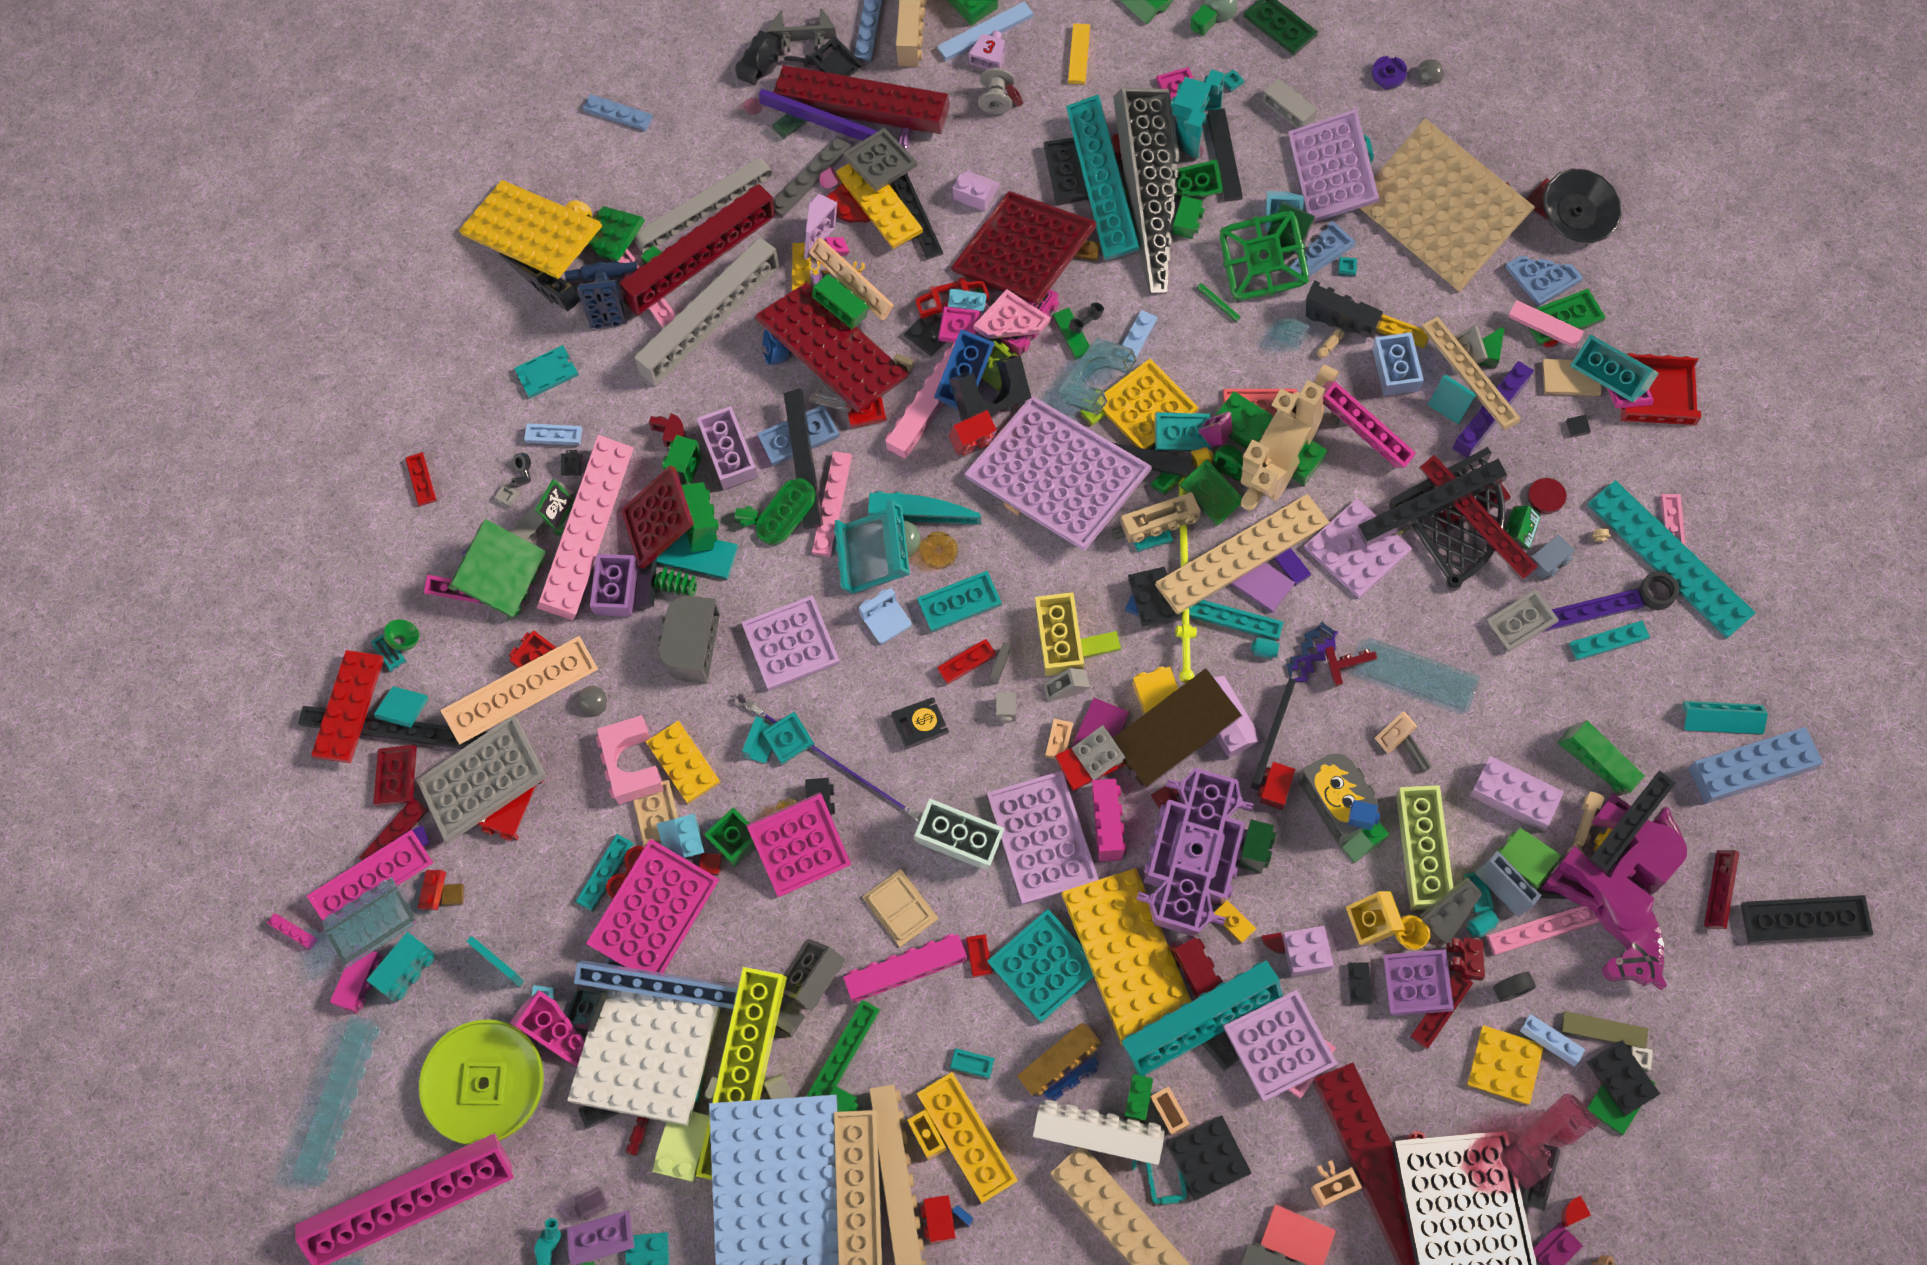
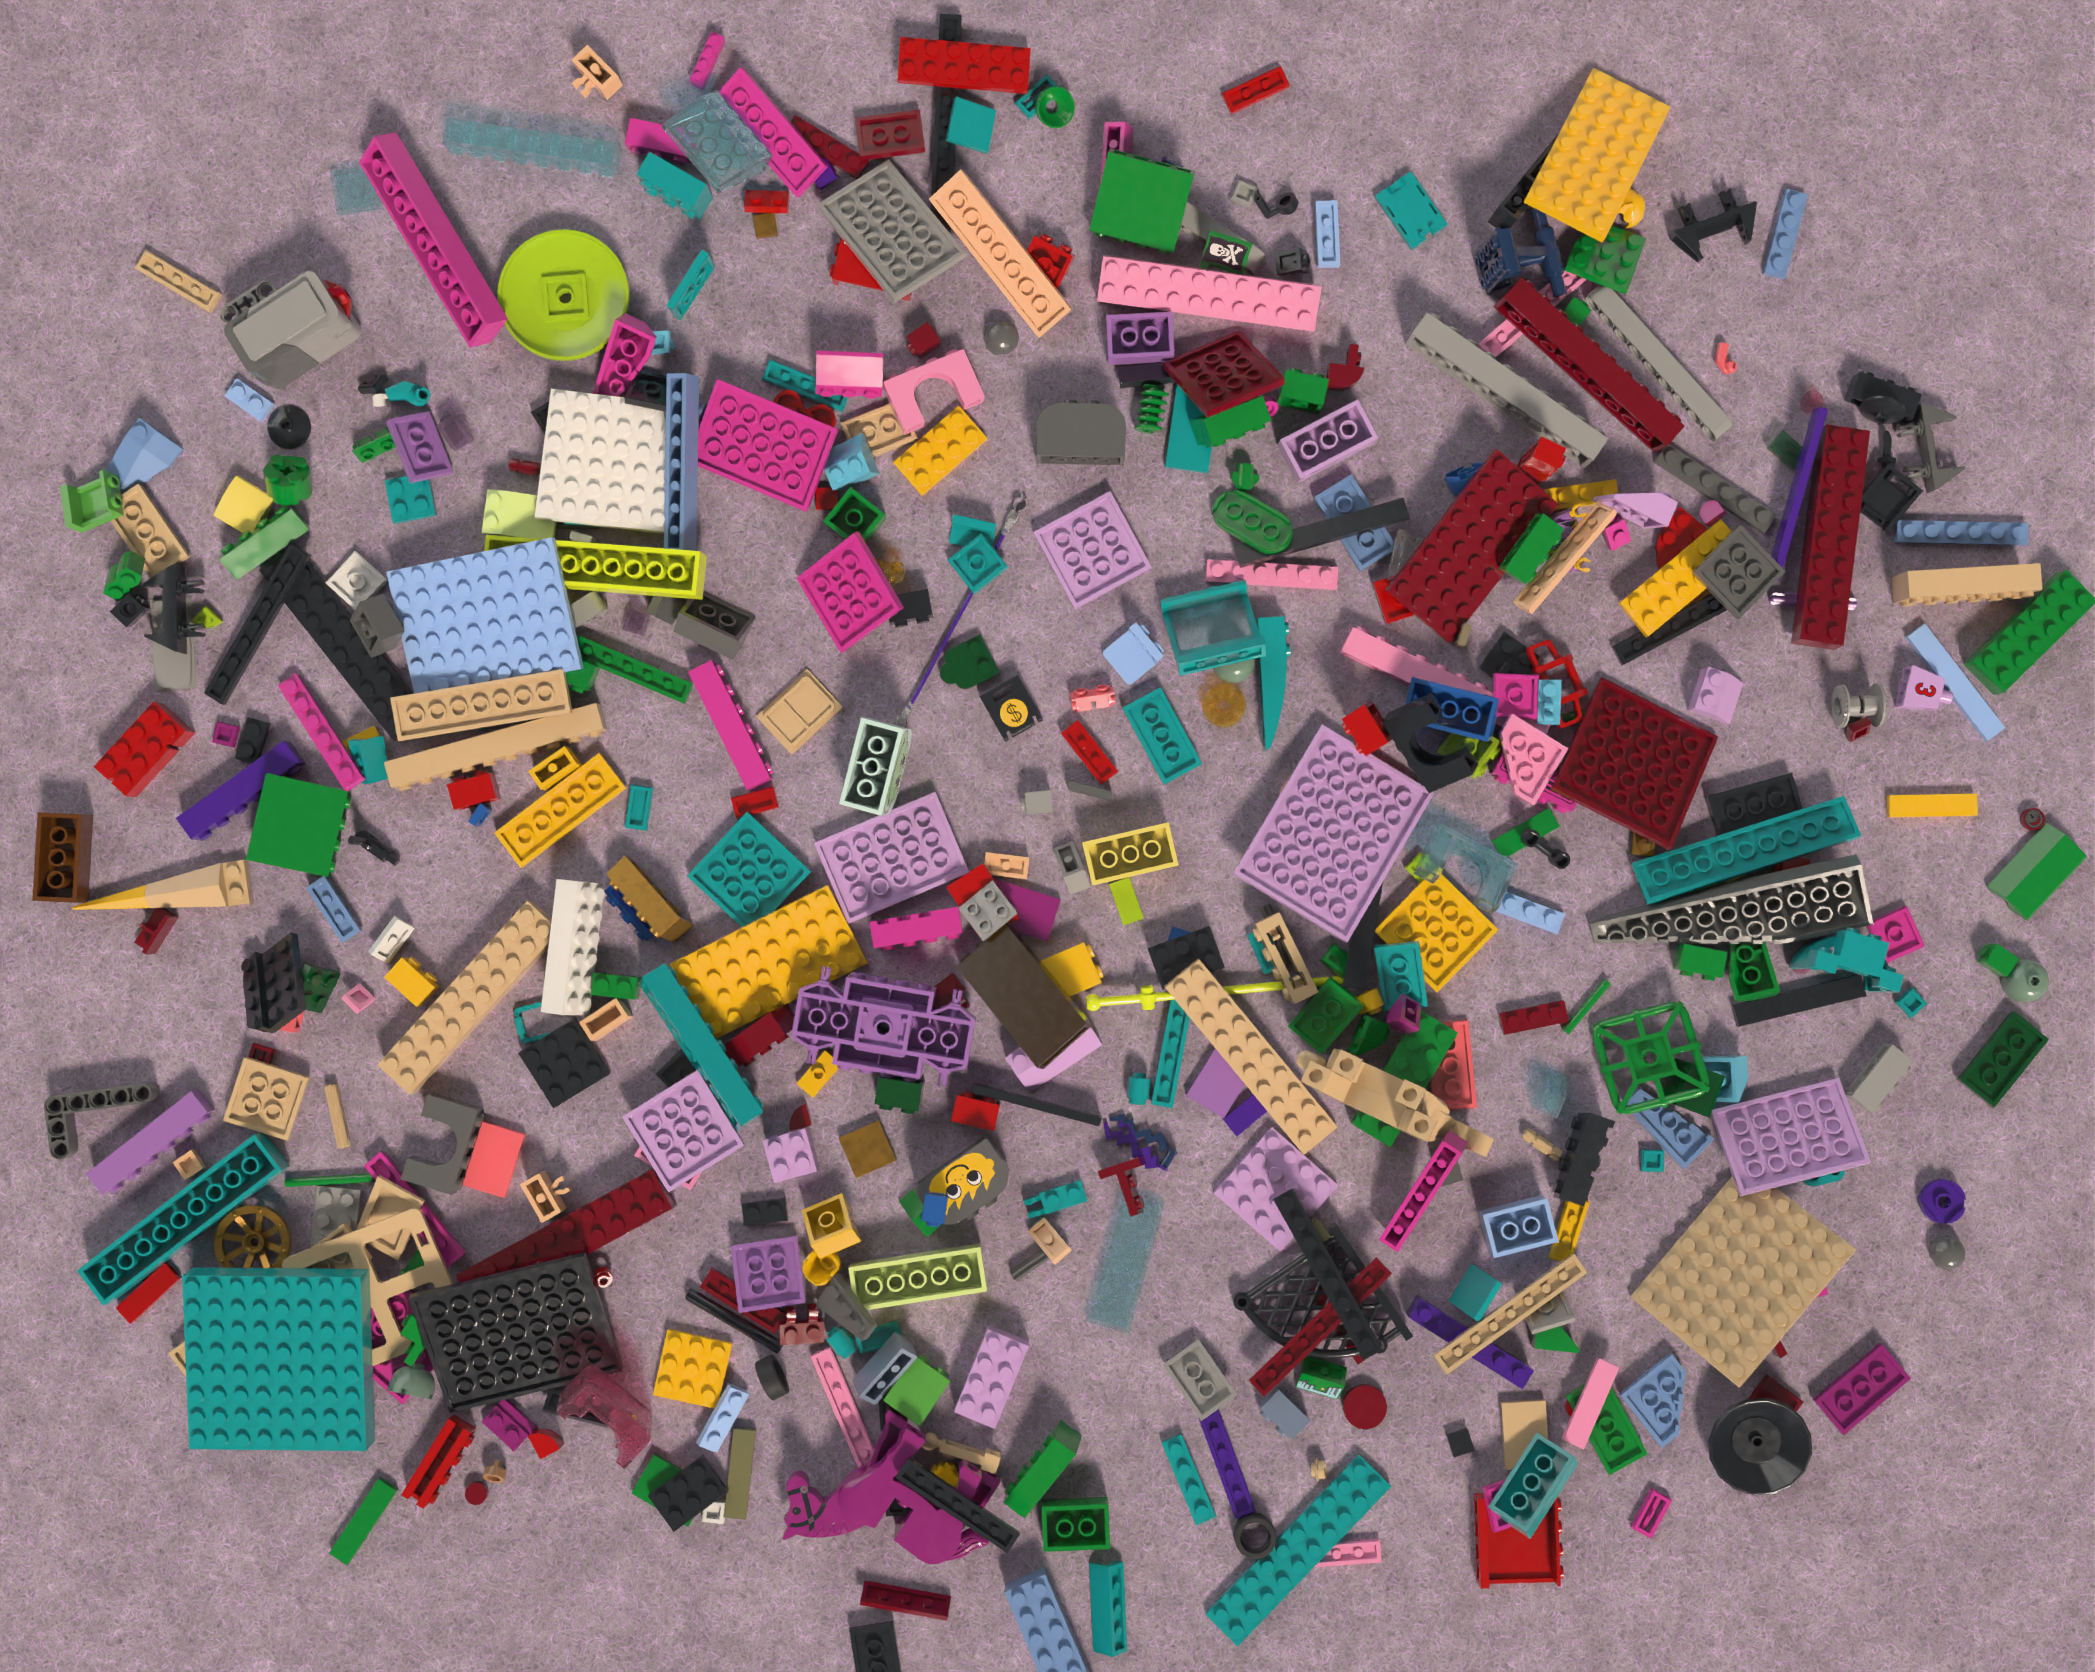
camera: 80 degrees right, 20 degrees up
(281, 1031) = (595, 74): none -> light nougat brick
(582, 765) = (922, 340): none -> dark red brick
(599, 139) = (1693, 231): none -> black hose
(602, 827) = (849, 374): none -> slope
(709, 163) = (1722, 361): none -> coral arm
(768, 282) = (1542, 460): none -> red brick
(798, 1048) = (636, 622): none -> clear purple tile
(876, 755) = (968, 664): none -> dark green plate
(919, 646) = (1100, 695): none -> coral hinge
(1224, 341) = (1533, 1017): none -> dark red plate
(1305, 885) = (867, 1149): none -> pearl gold tile
(1358, 725) = (1057, 1198): none -> teal hinge
(1460, 1022) = (733, 1320): none -> black axle
(1536, 137) = (1861, 1388): none -> magenta plate
(1635, 294) = (1645, 1505): none -> dark pink tile
(1650, 733) = (1075, 1524): none -> green brick

